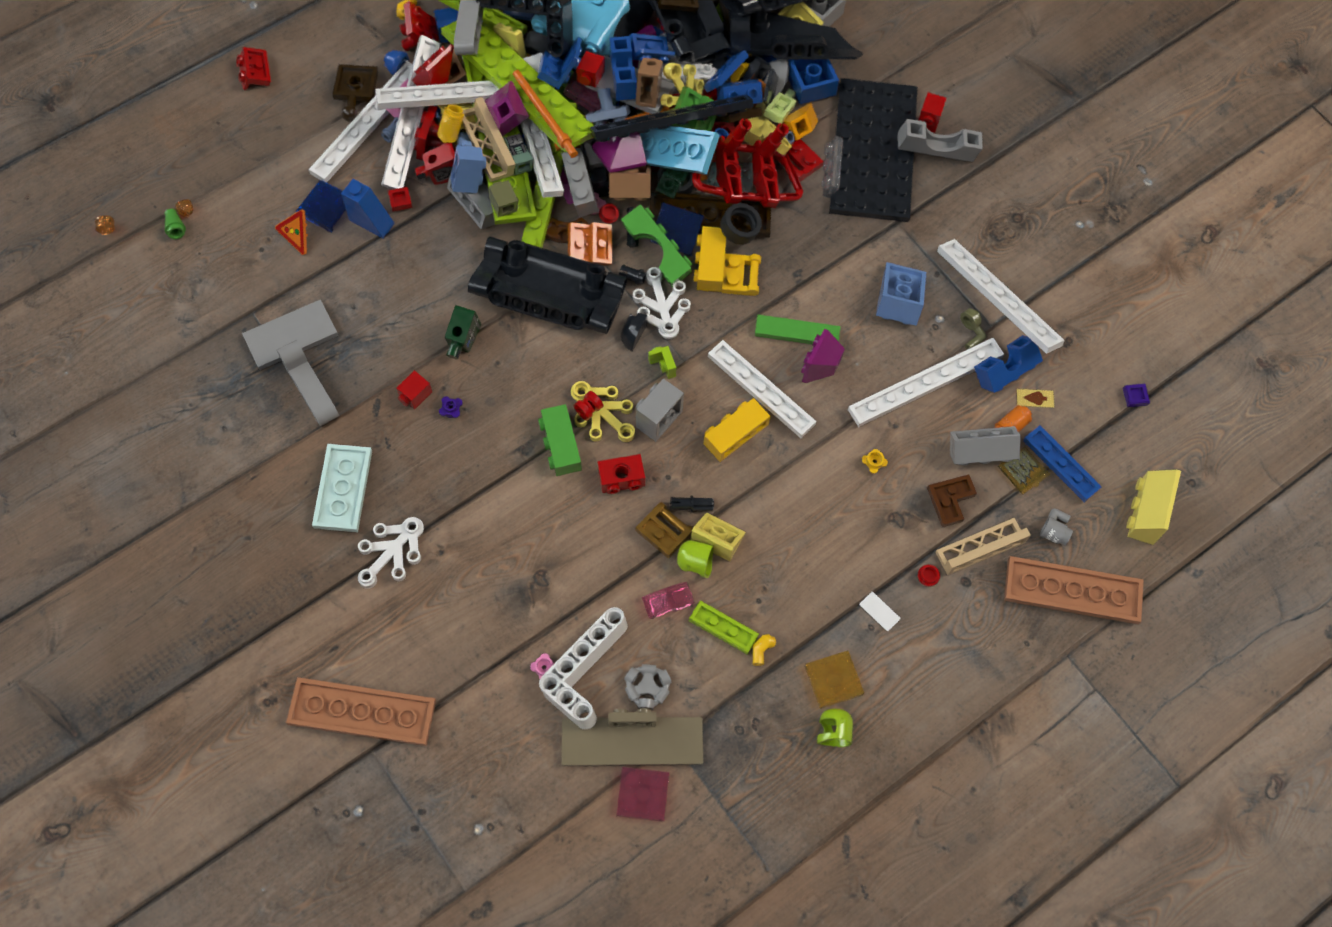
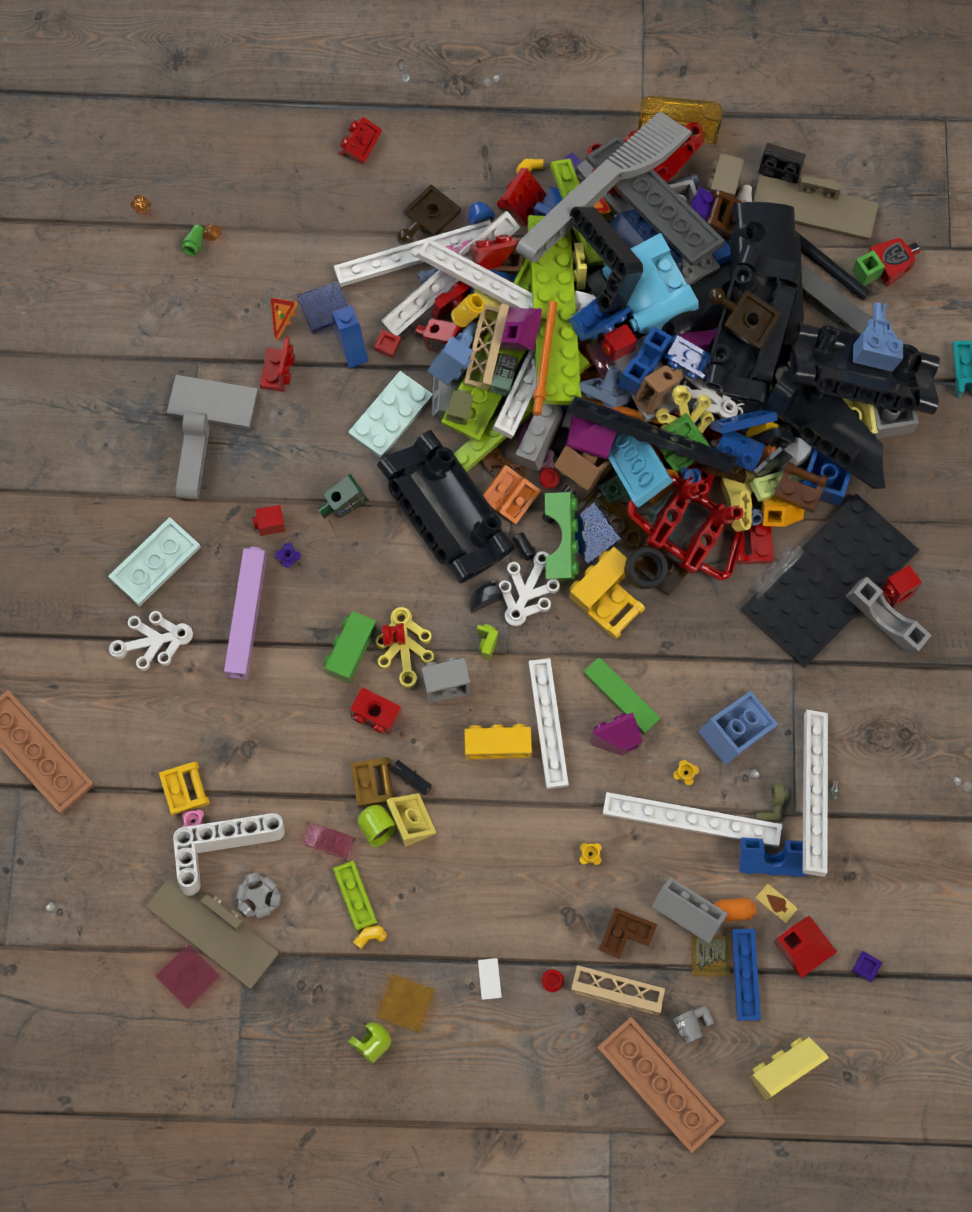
camera: 40 degrees right, 5 degrees up
(325, 272) = (277, 366): none -> red bracket
(445, 250) = (390, 414): none -> light aqua plate
(453, 474) = (245, 613): none -> lavender brick
(510, 652) = (176, 789): none -> yellow plate
(804, 98) = (797, 493): none -> reddish brown plate
(891, 346) = (685, 766): none -> yellow plate
(1083, 413) = (804, 946): none -> red slope

